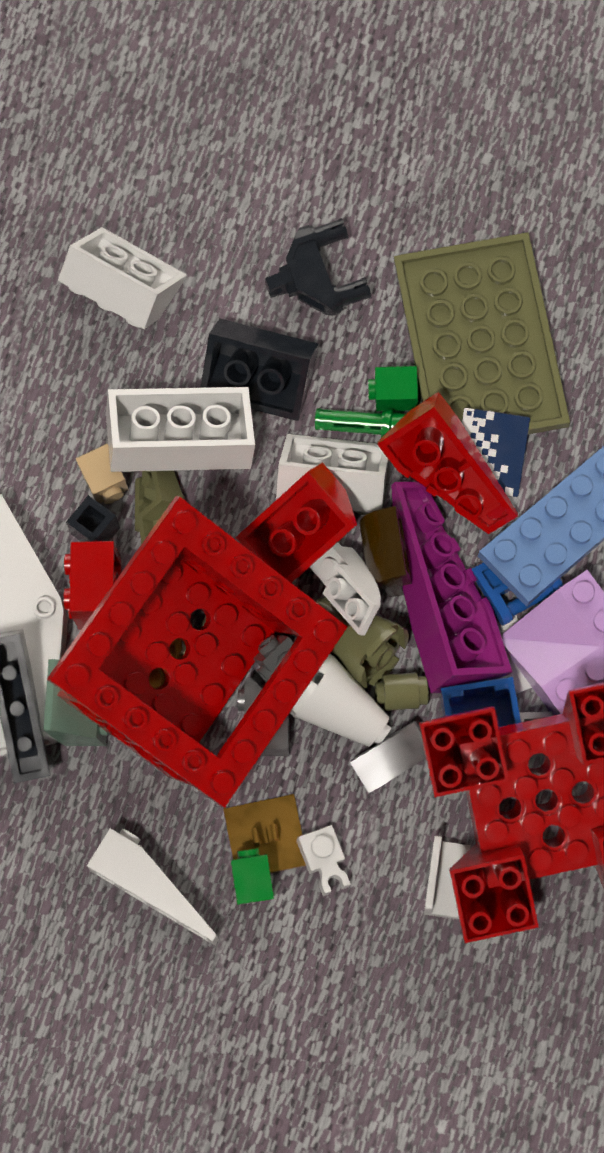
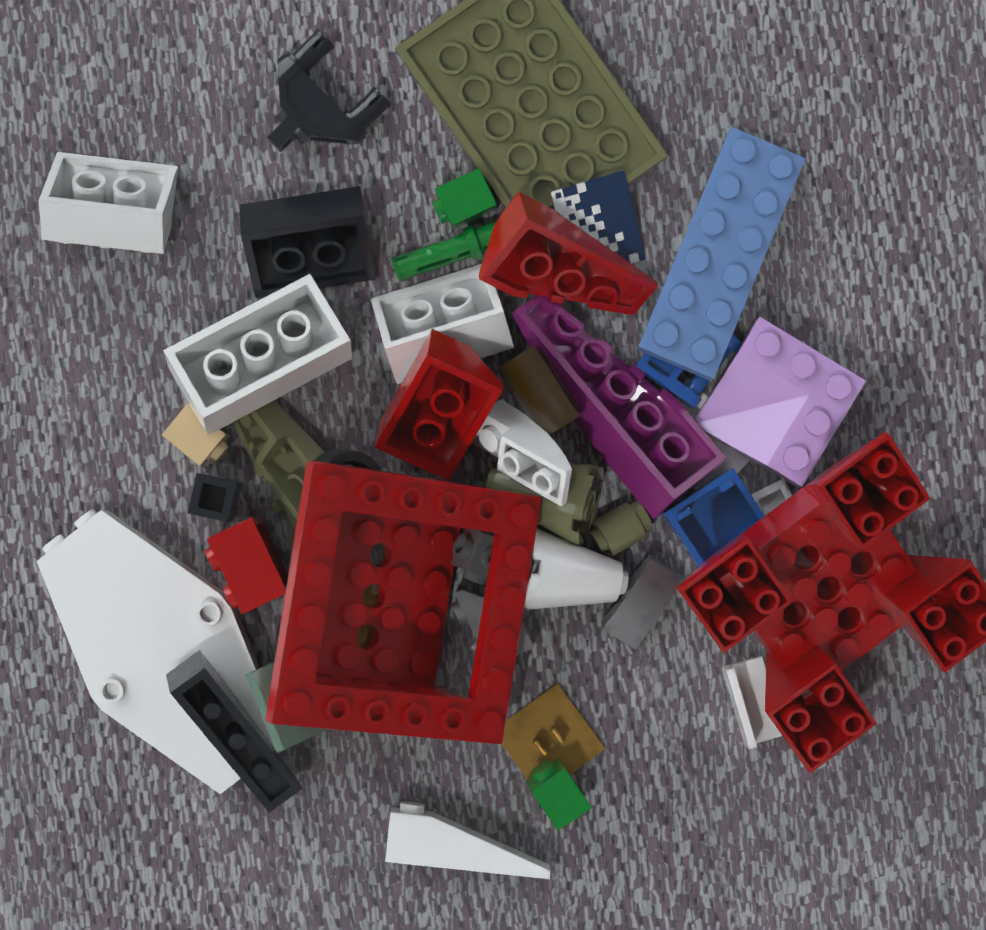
camera: 30 degrees left, 15 degrees up
(322, 854) = (616, 733): white plate -> none

